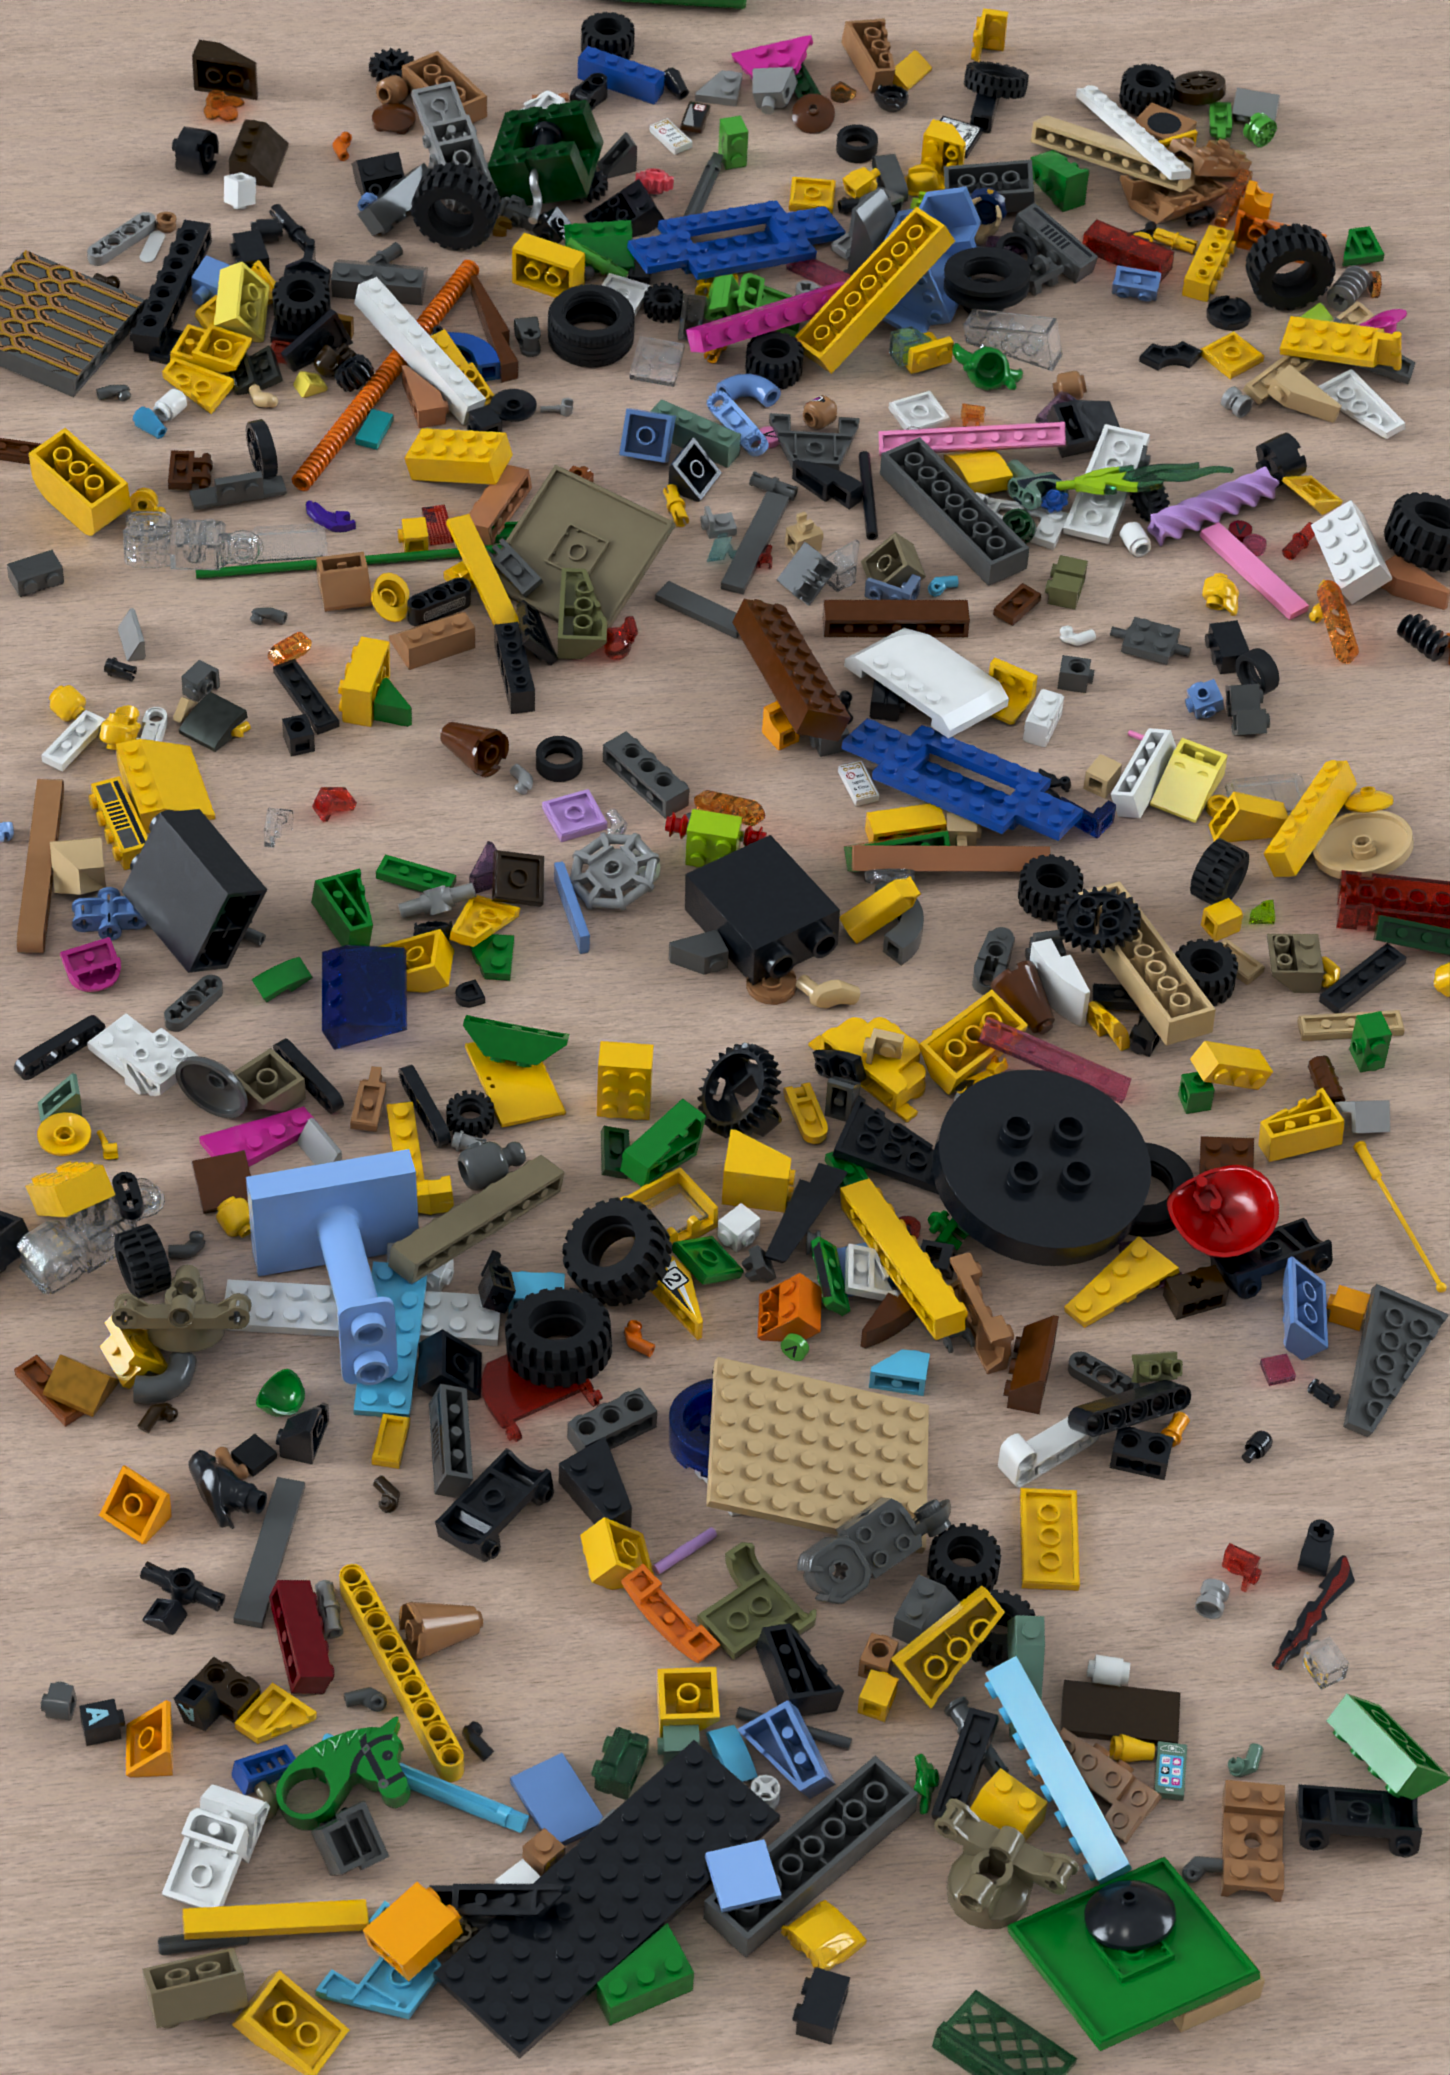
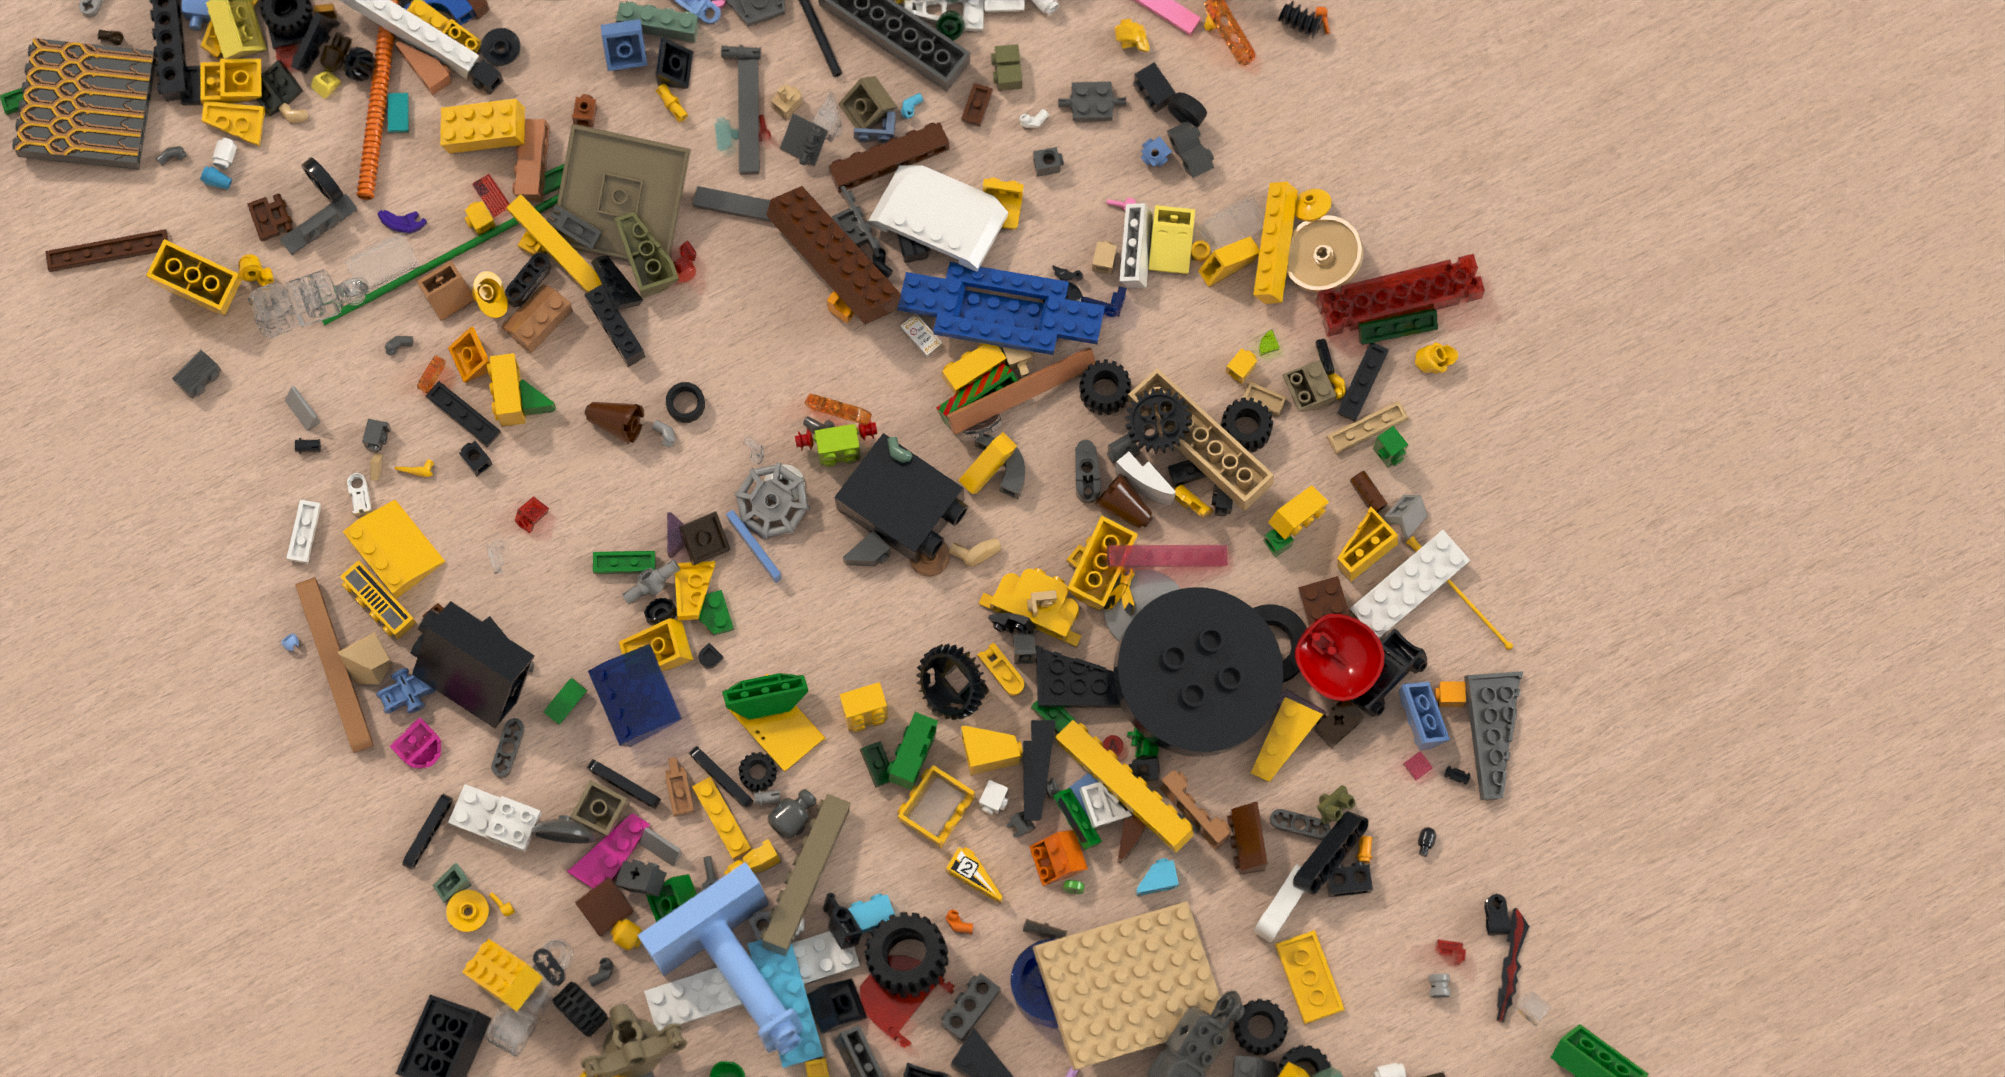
camera: 20 degrees left, 25 degrees up
(67, 702) = (283, 498): yellow head -> none
(120, 726) = (336, 507): yellow head -> none
(212, 721) = (404, 471): pearl dark grey slope -> none
(280, 1157) = (641, 878): none -> dark grey brick
(338, 644) = (469, 355): none -> light orange slope
(344, 907) = (586, 620): green wedge -> none
(565, 408) = (538, 31): light grey hand -> none
(574, 815) = (718, 451): lavender tile -> none
(600, 1229) = (895, 872): black tyre -> none
(646, 774) = (782, 412): dark grey brick -> none
(707, 1260) = (982, 836): green tile -> none
(718, 523) = (713, 109): light grey bracket -> none
(779, 853) = (898, 453): none -> sand green arm
(828, 483) = (783, 34): black slope -> none
(831, 659) = (853, 225): none -> dark grey bracket
(1043, 718) = (1039, 217): white brick -> none
(1219, 872) = (1228, 329): black tyre -> none
(1326, 940) = (1325, 356): none -> black axle
(1347, 1183) = (1410, 584): none -> white plate

